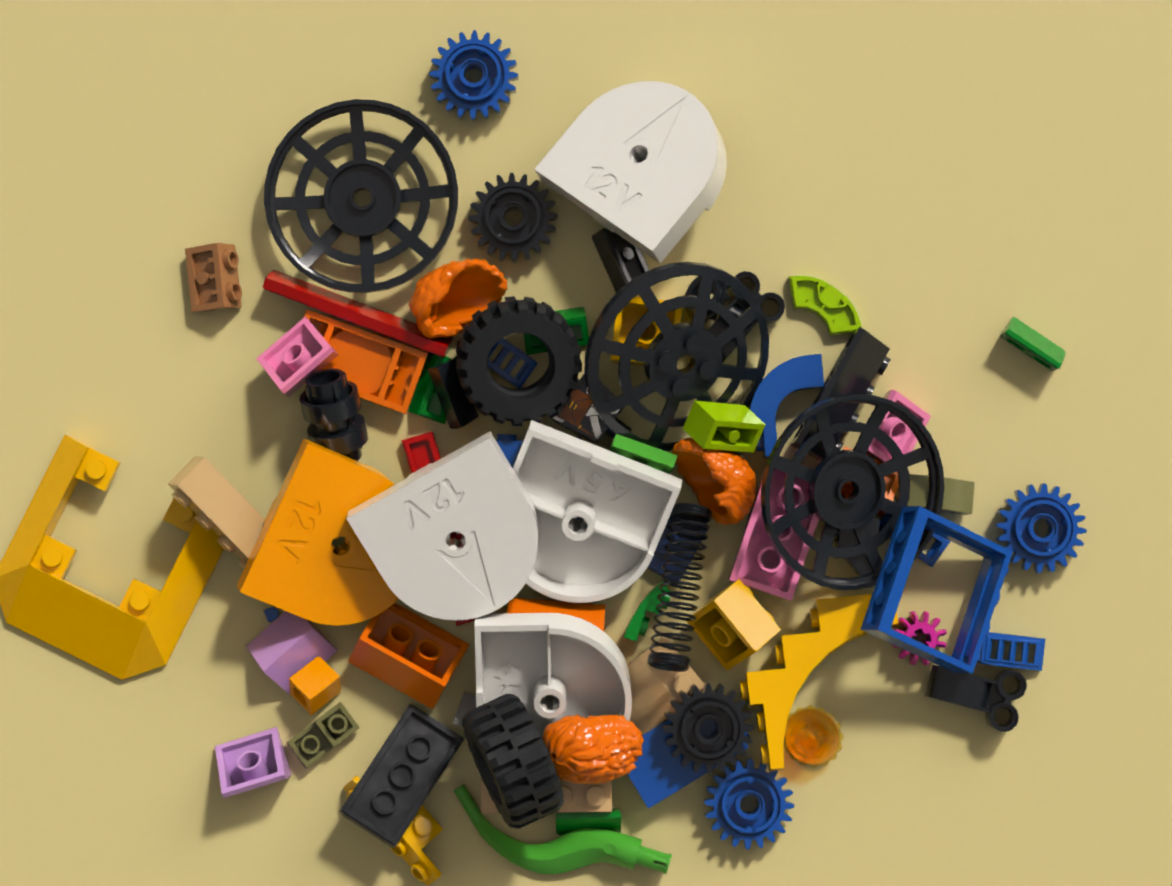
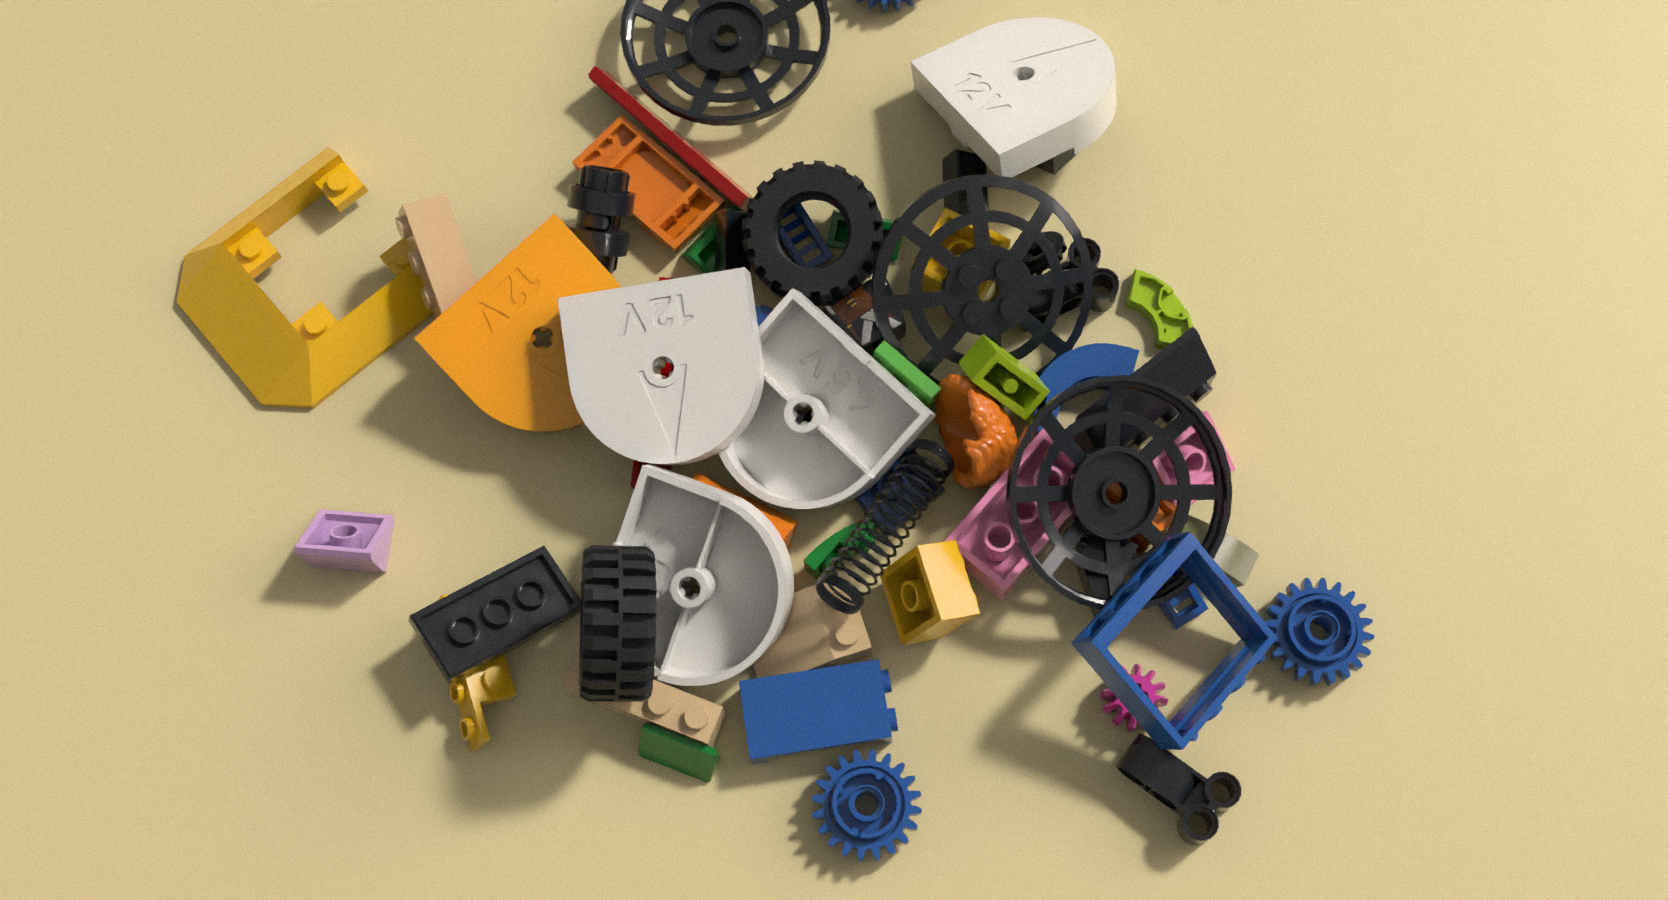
camera: 30 degrees right, 15 degrees down
(213, 277) = (546, 55): medium nougat bracket -> none
(271, 613) = (445, 399): blue piece -> none
(288, 647) = (447, 442): lavender slope -> none
(296, 356) = (594, 145): bright pink slope -> none
(314, 685) = (452, 484): light orange panel -> none
(322, 735) = (437, 543): olive slope -> none
(409, 654) = (564, 490): orange slope -> none
(453, 293) = (773, 142): orange hair -> none
(510, 197) = (871, 128): black gear -> none
(568, 851) = (643, 776): bright green animal -> none
(593, 747) = (715, 657): orange hair -> none
(719, 745) = (850, 716): black gear -> none
(812, 736) = (979, 758): clear yellow piece -> none
(837, 623) = (987, 664): yellow arch -> none
(985, 652) = (1215, 729): blue slope -> none
(1033, 344) = (1375, 437): slope -> none

